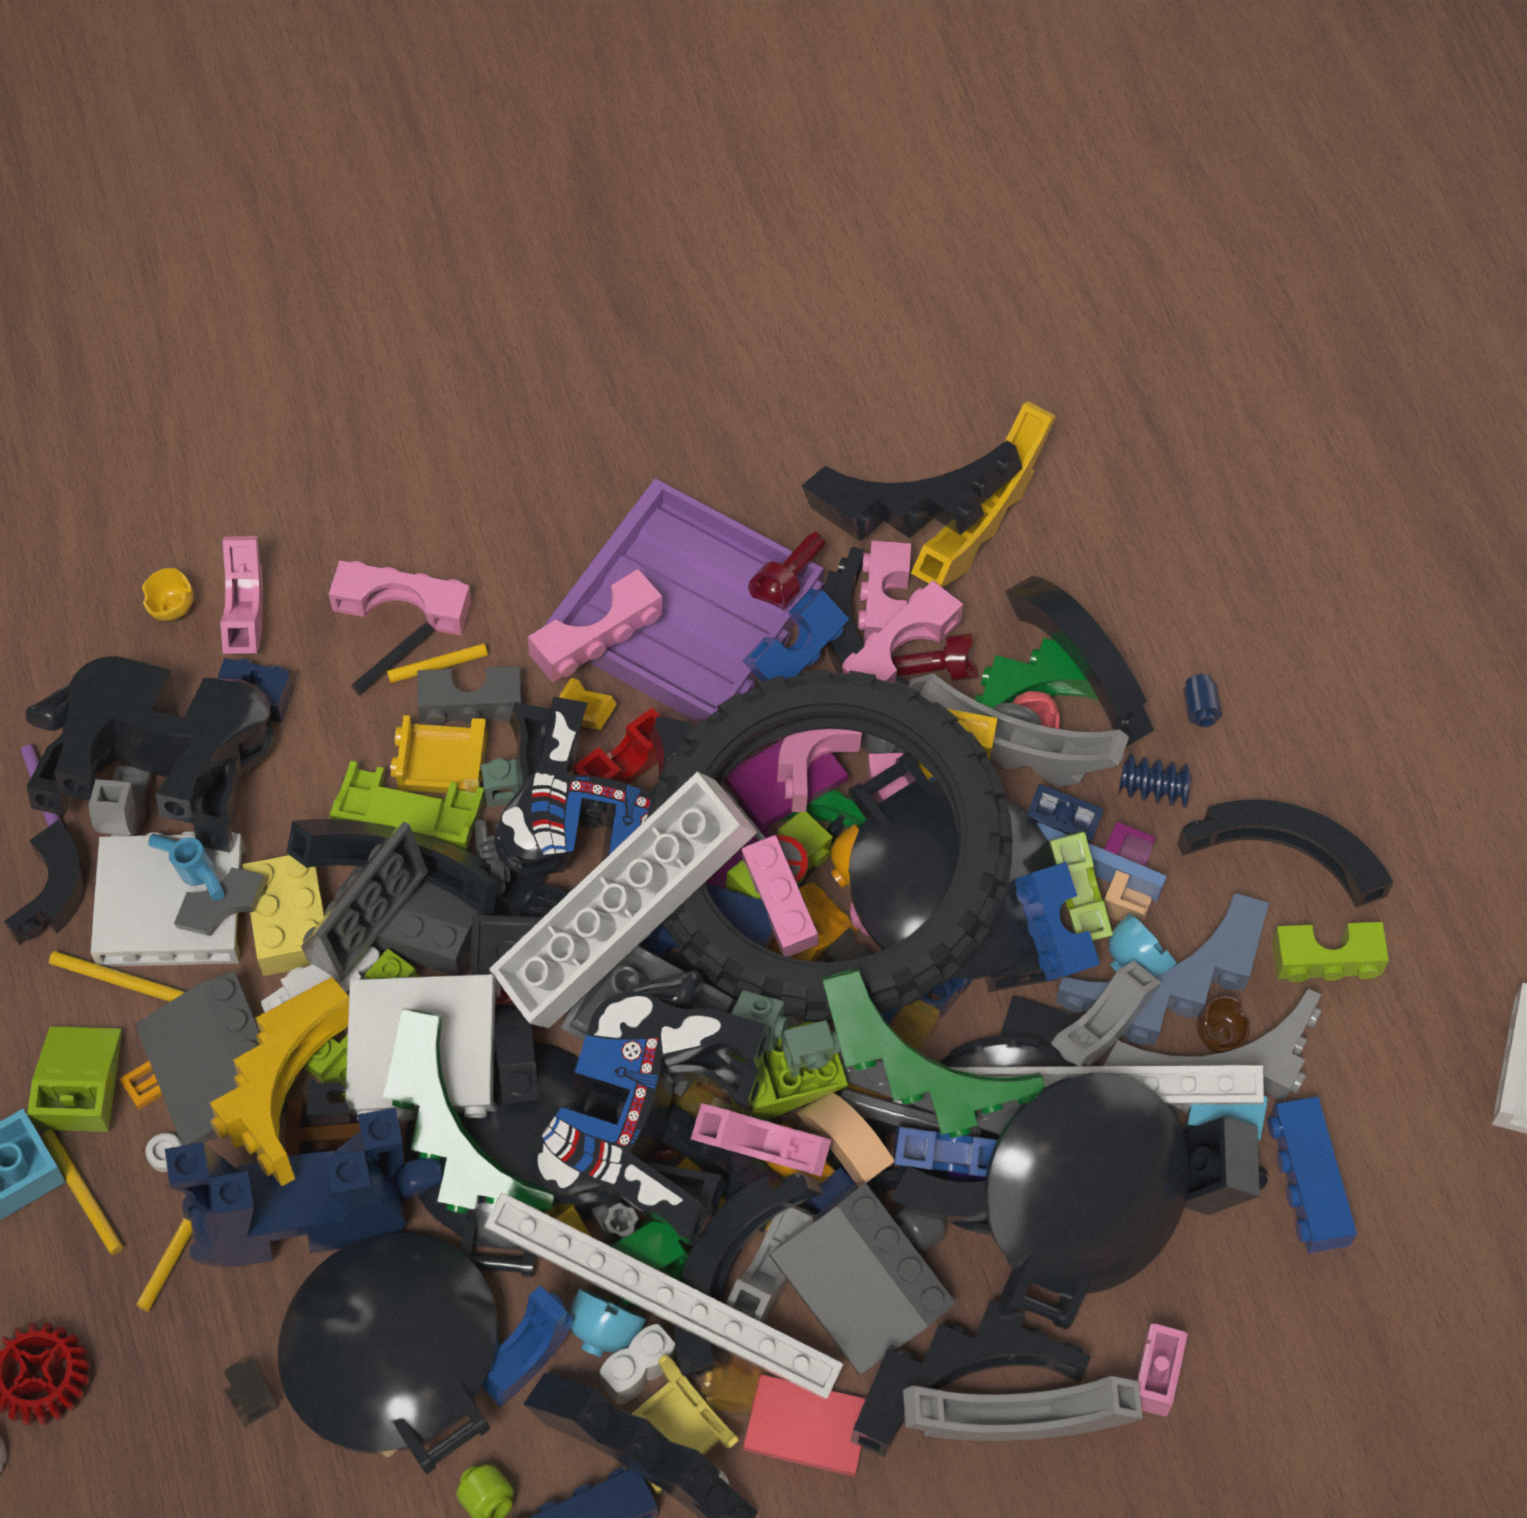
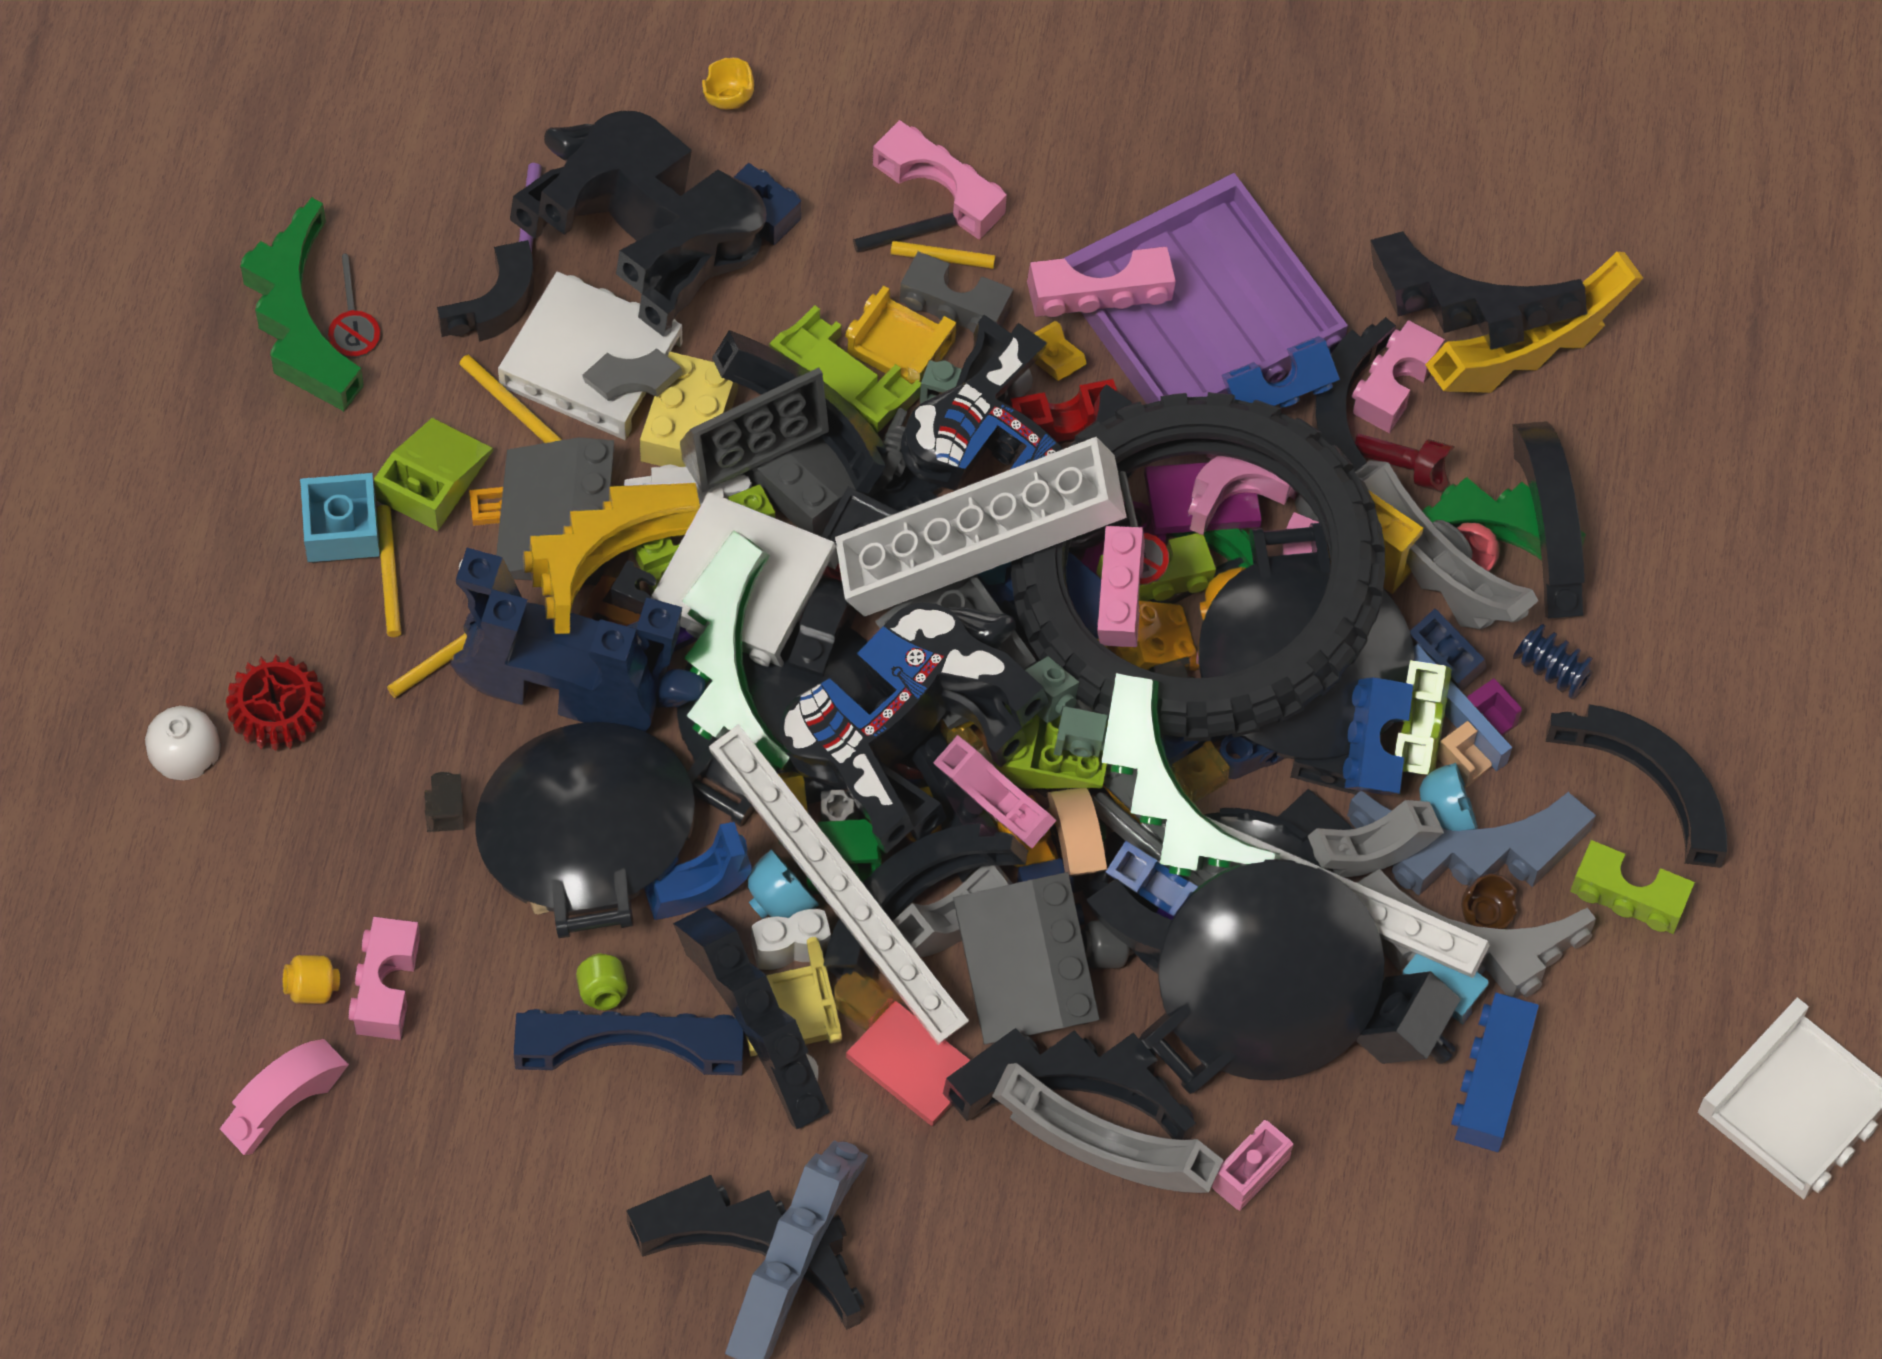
camera: 25 degrees right, 0 degrees up
(120, 803) = (589, 249): light grey arch -> none
(190, 862) = (623, 328): dark azure piece -> none
(243, 595) = (790, 128): bright pink arch -> none
(778, 582) = (1293, 317): dark red piece -> none
(928, 616) = (1419, 411): bright pink arch -> none
(1202, 700) = (1645, 609): dark blue brick -> none

